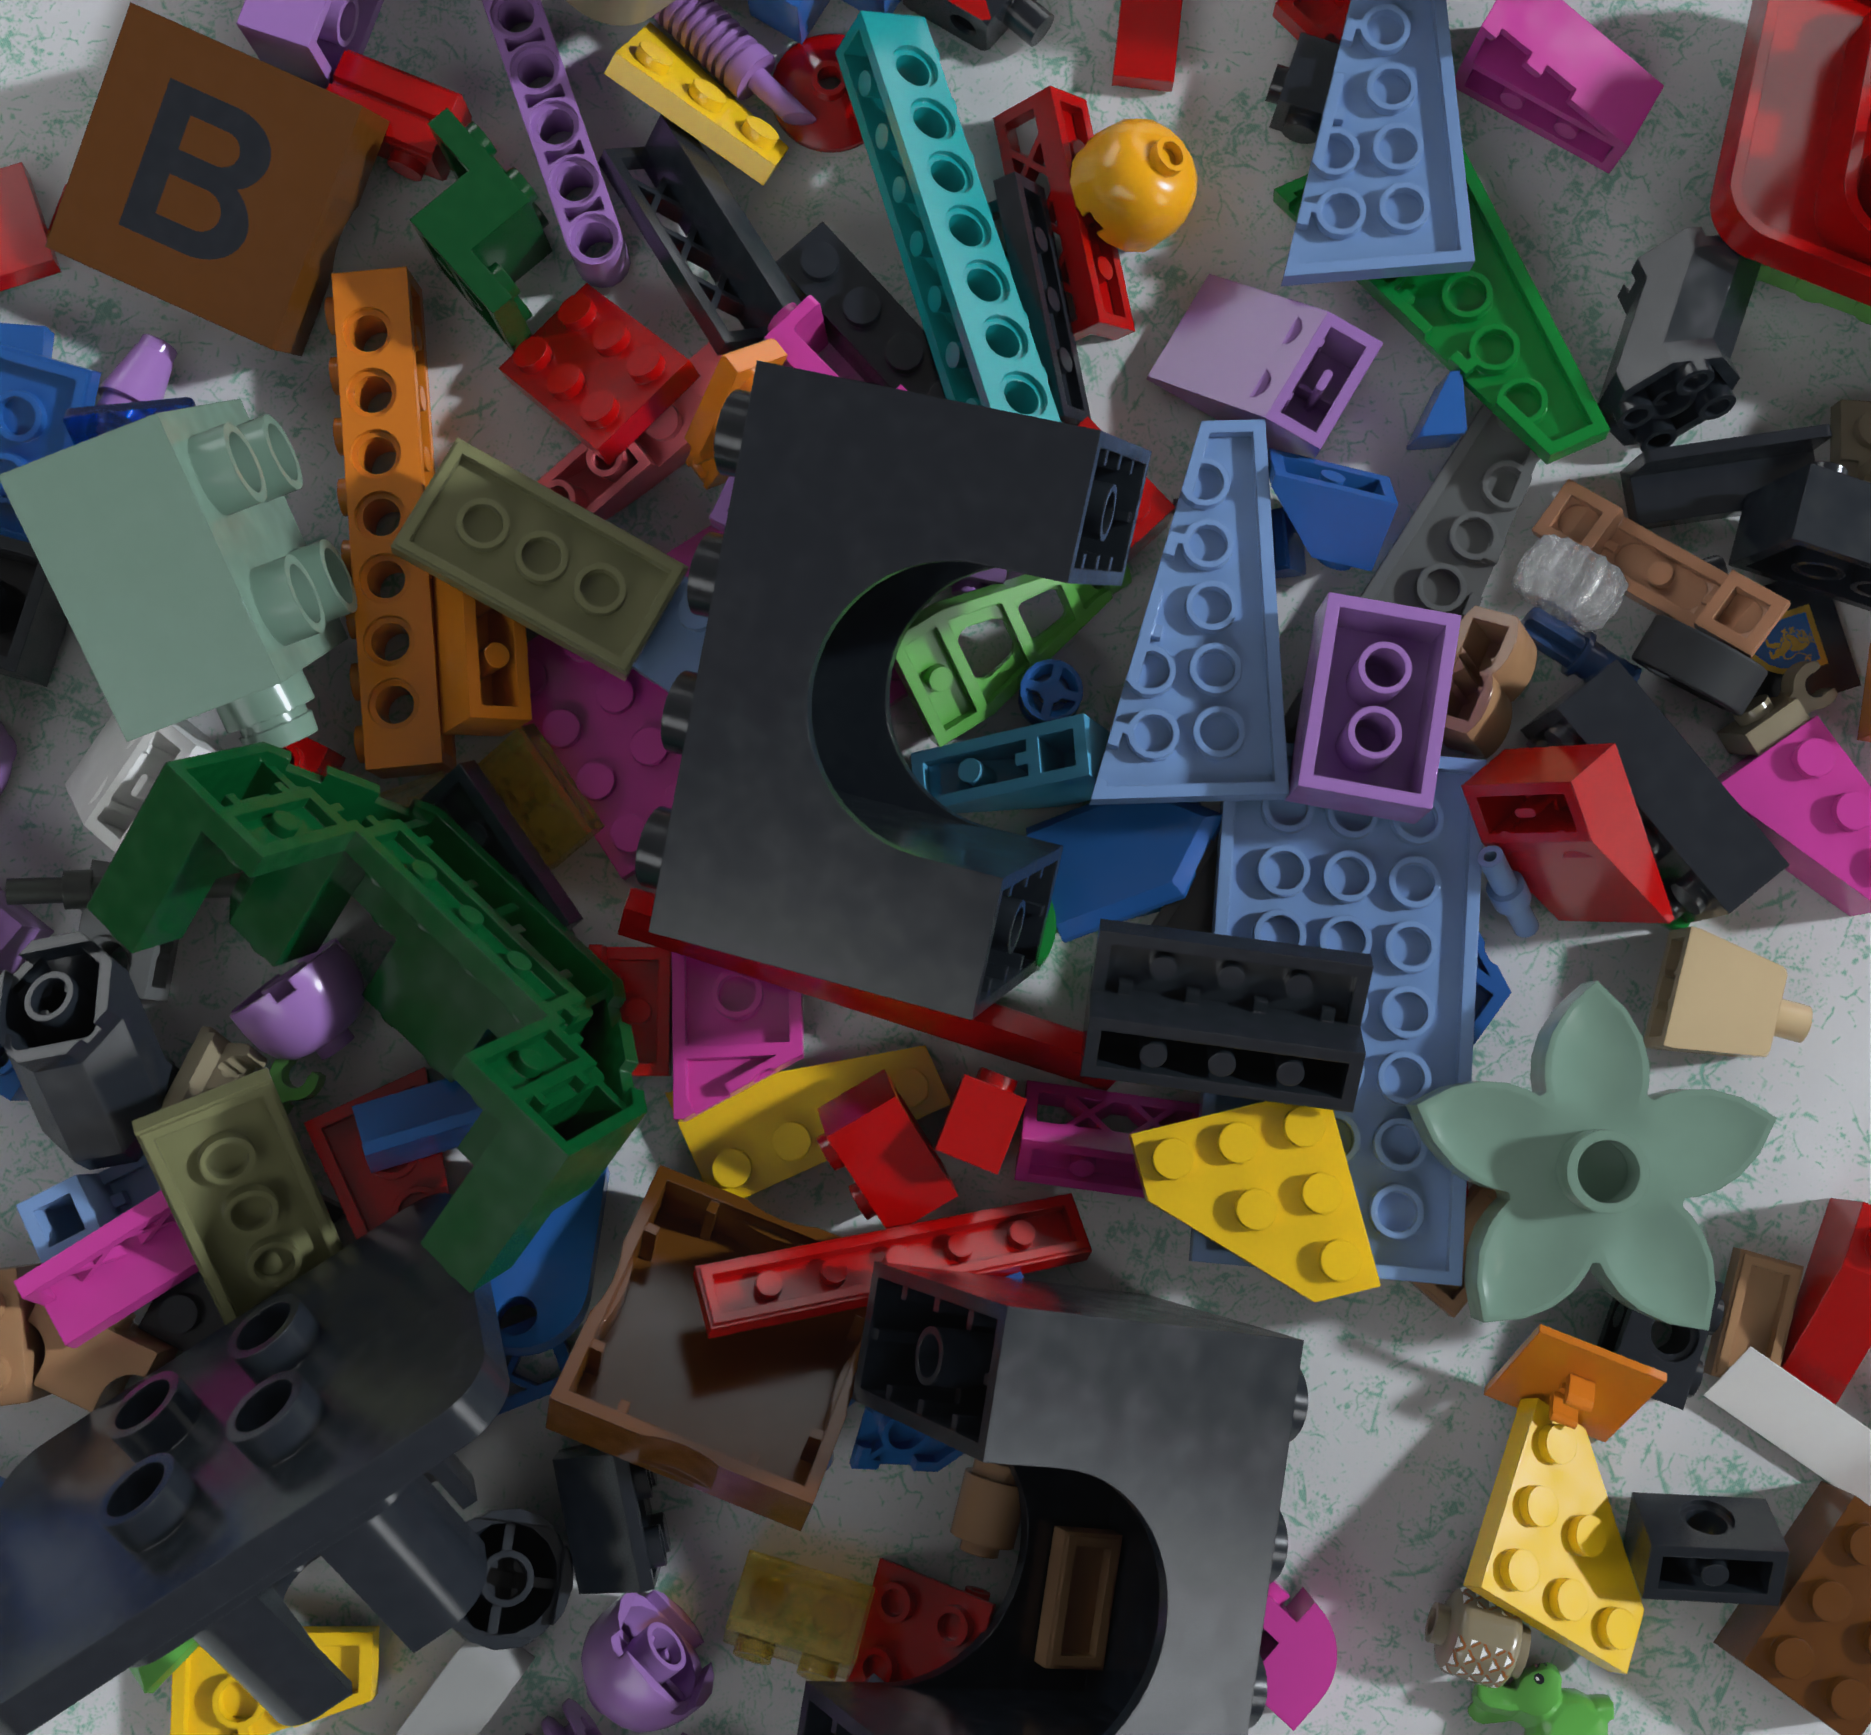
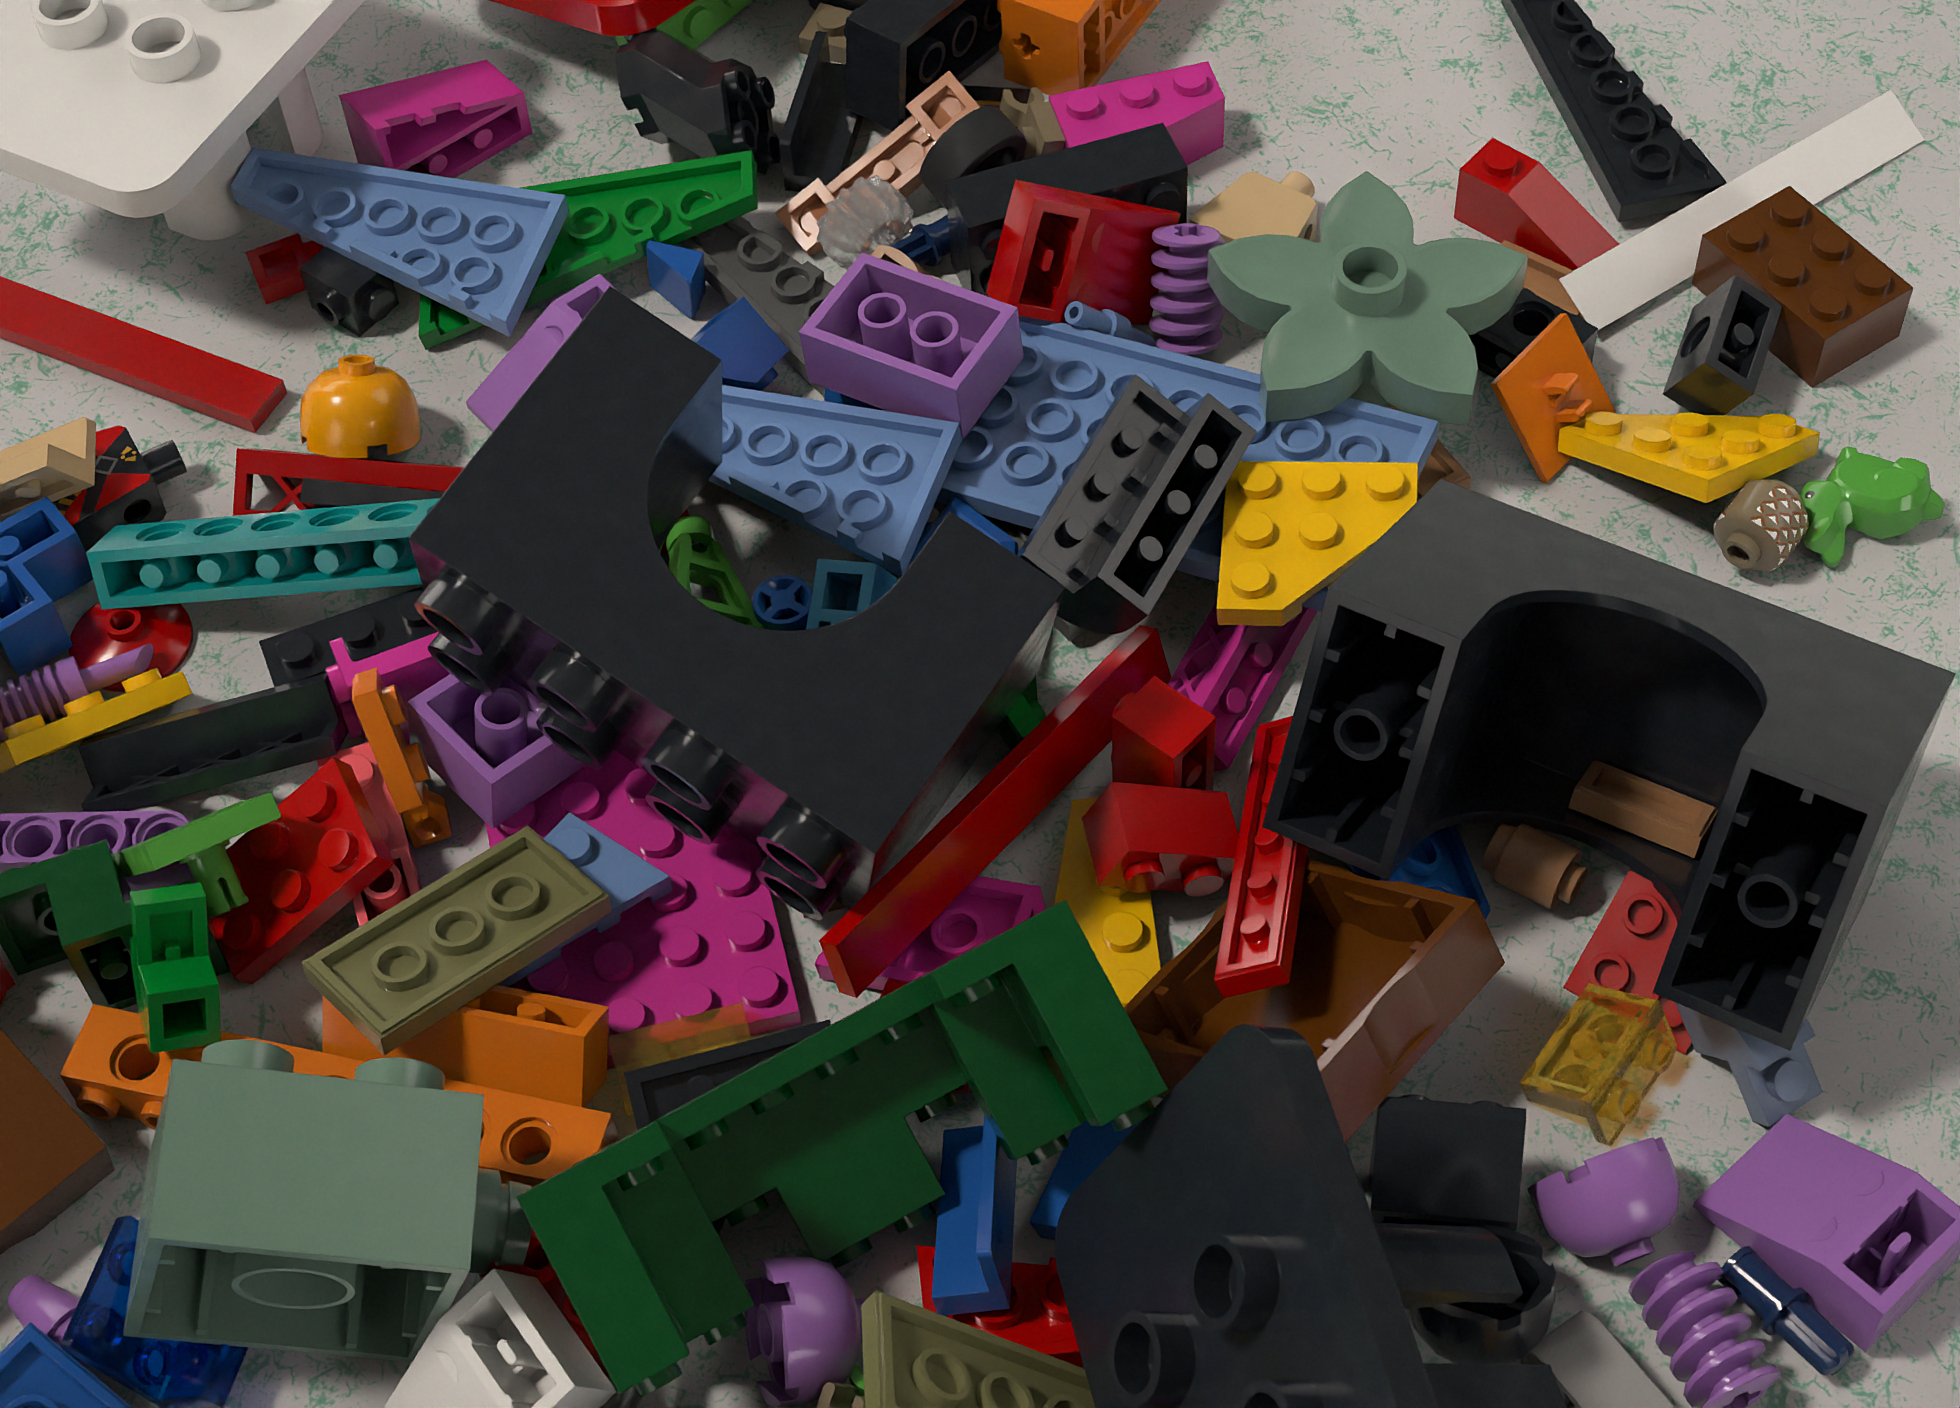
camera: 65 degrees left, 30 degrees down
(427, 328) = (173, 968): none -> green brick
(563, 281) = (203, 848): none -> bright green tile
(1610, 946) = (1188, 304): none -> medium lavender piece

